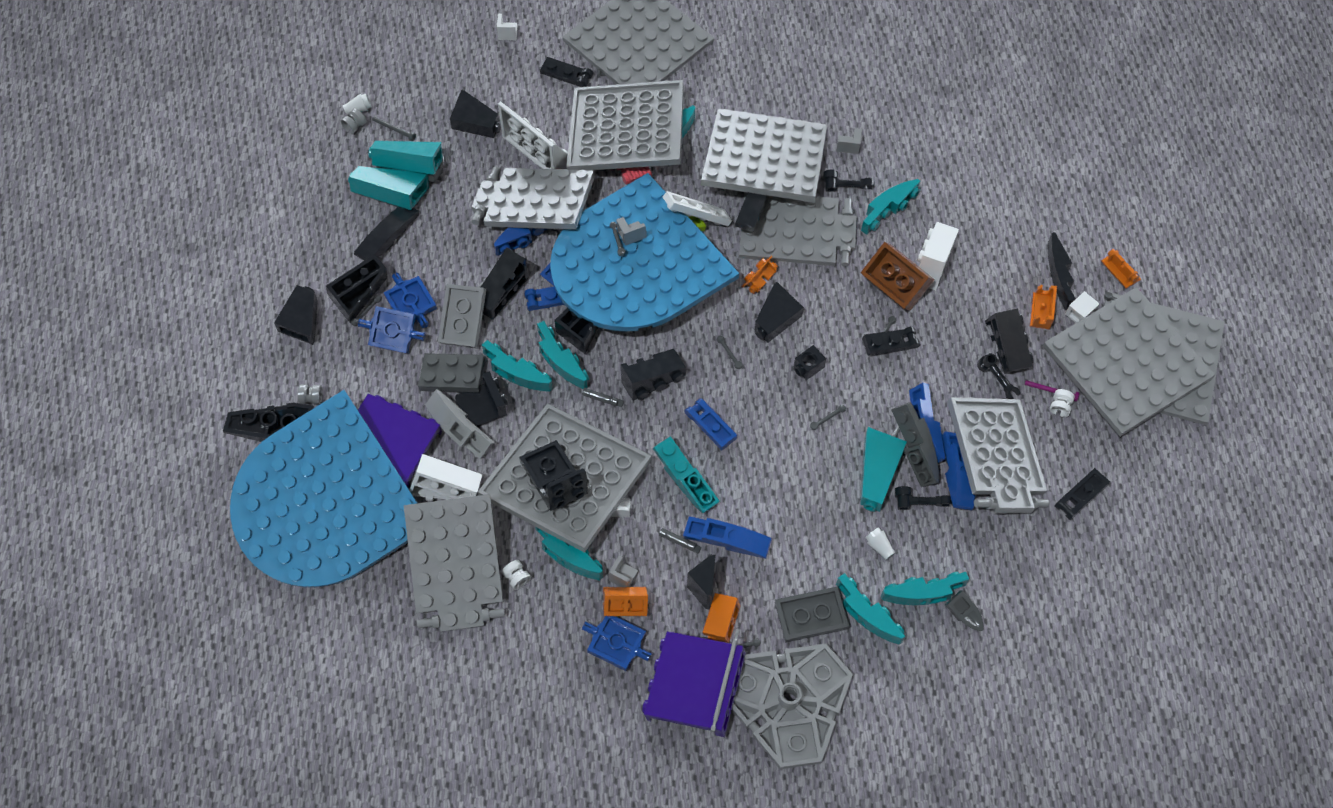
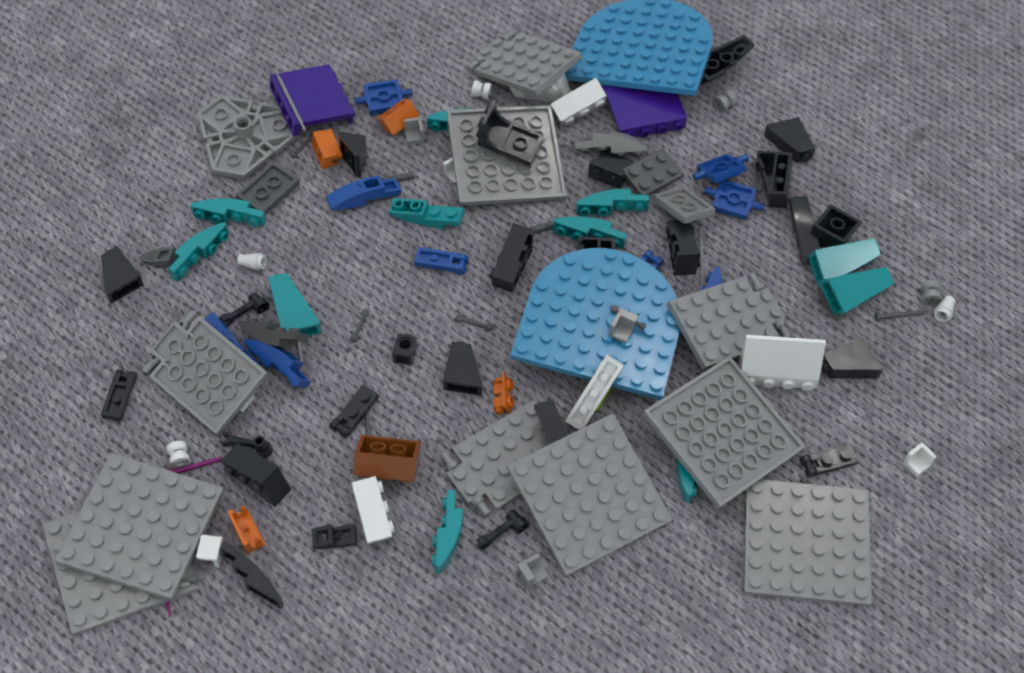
camera: 140 degrees right, 5 degrees down
(363, 207) = (835, 227): none -> black slope
(979, 263) = (334, 537): none -> black slope
(1016, 615) = (119, 275): none -> black slope
(1120, 269) = (197, 621): orange hinge -> none

